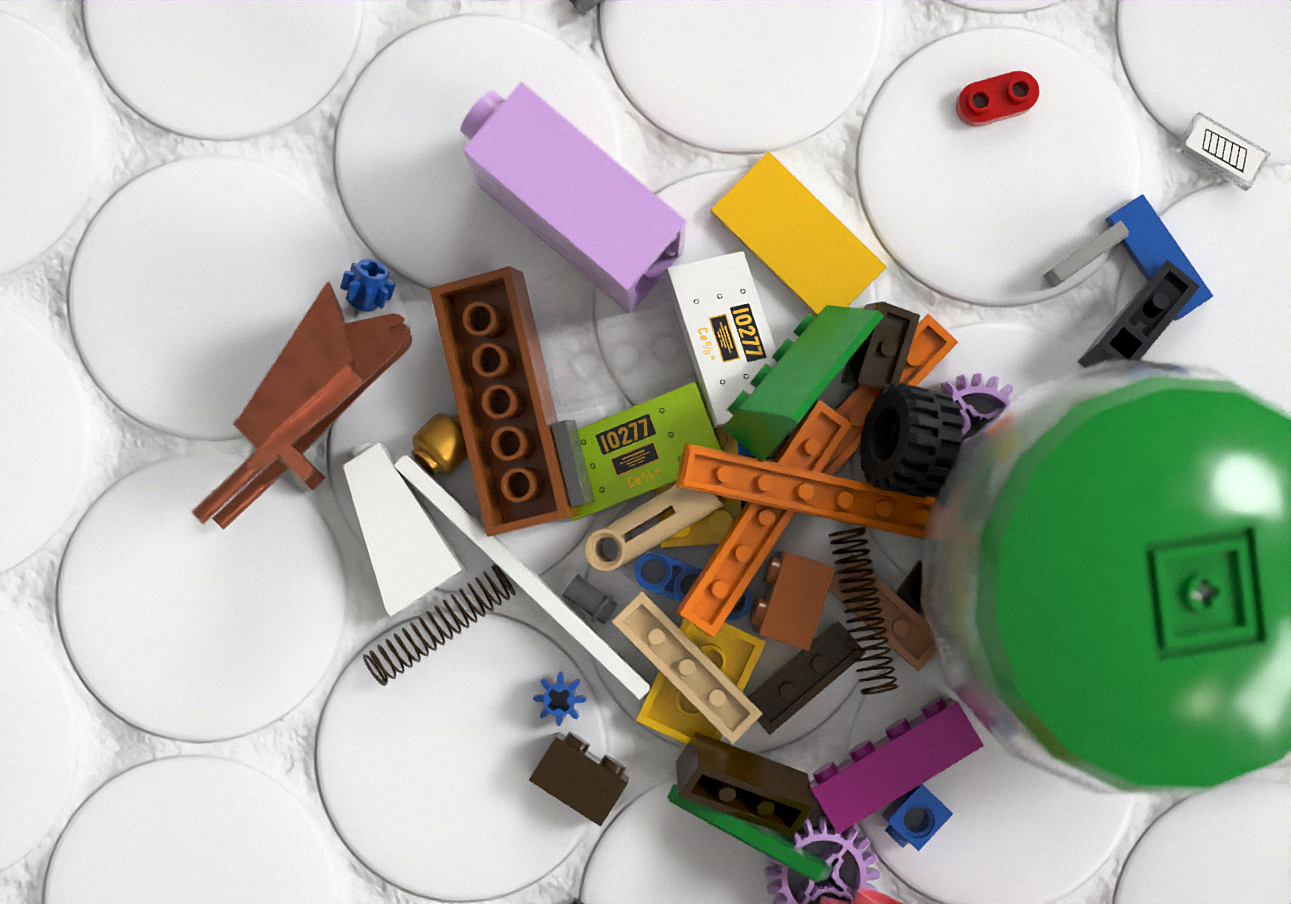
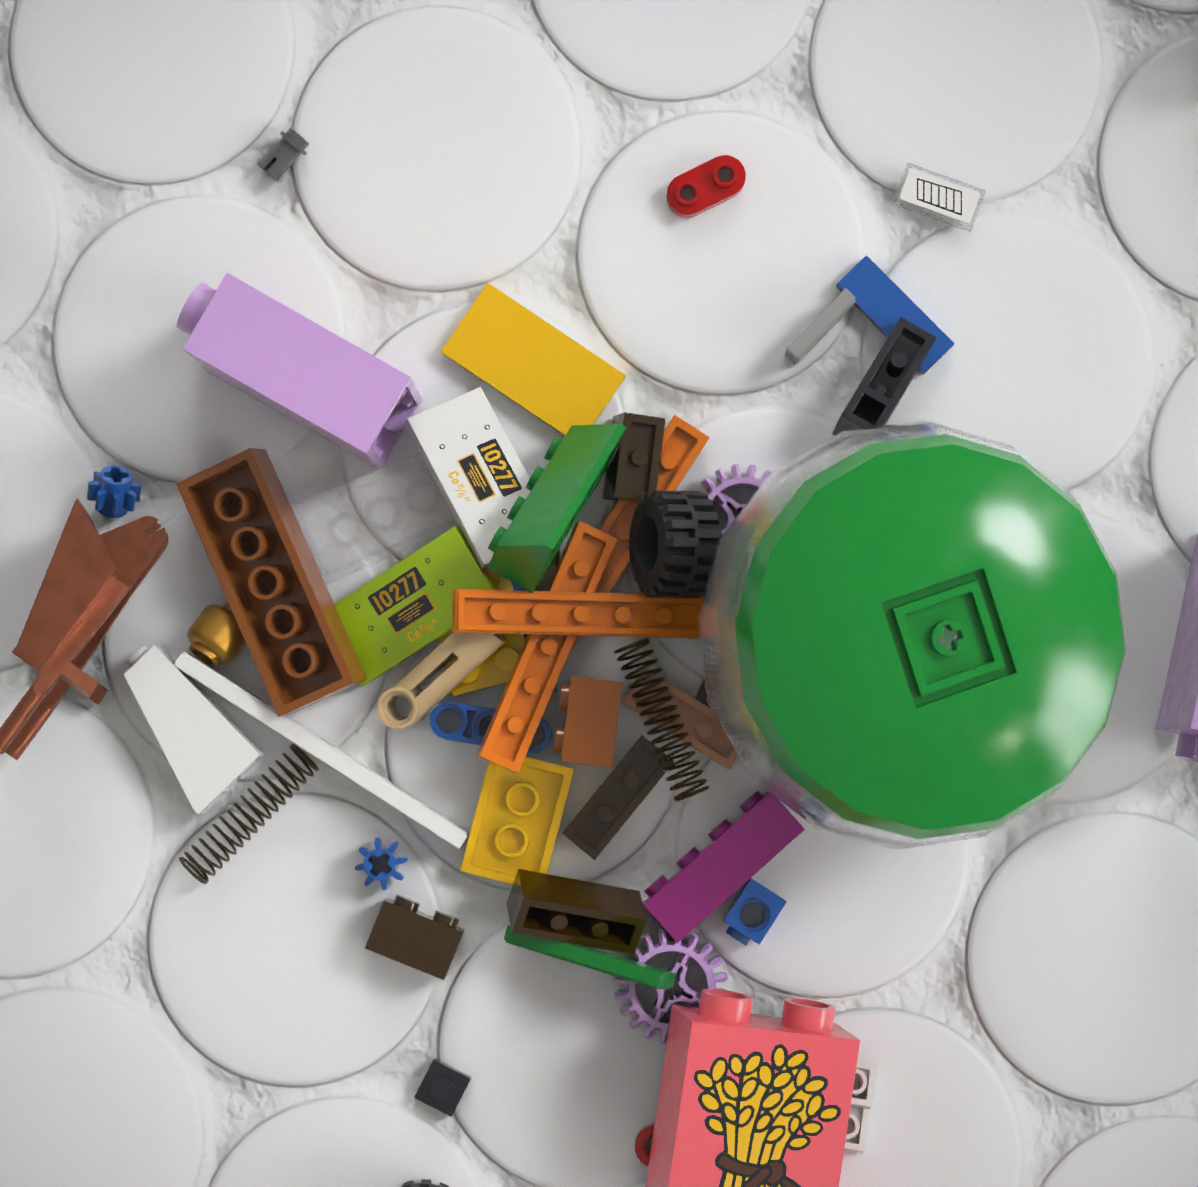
camera: 10 degrees left, 0 degrees up
(572, 462) = (349, 628): dark grey tile -> none
(590, 599) = (393, 761): dark grey pin -> none
(687, 667) = (499, 807): tan plate -> none

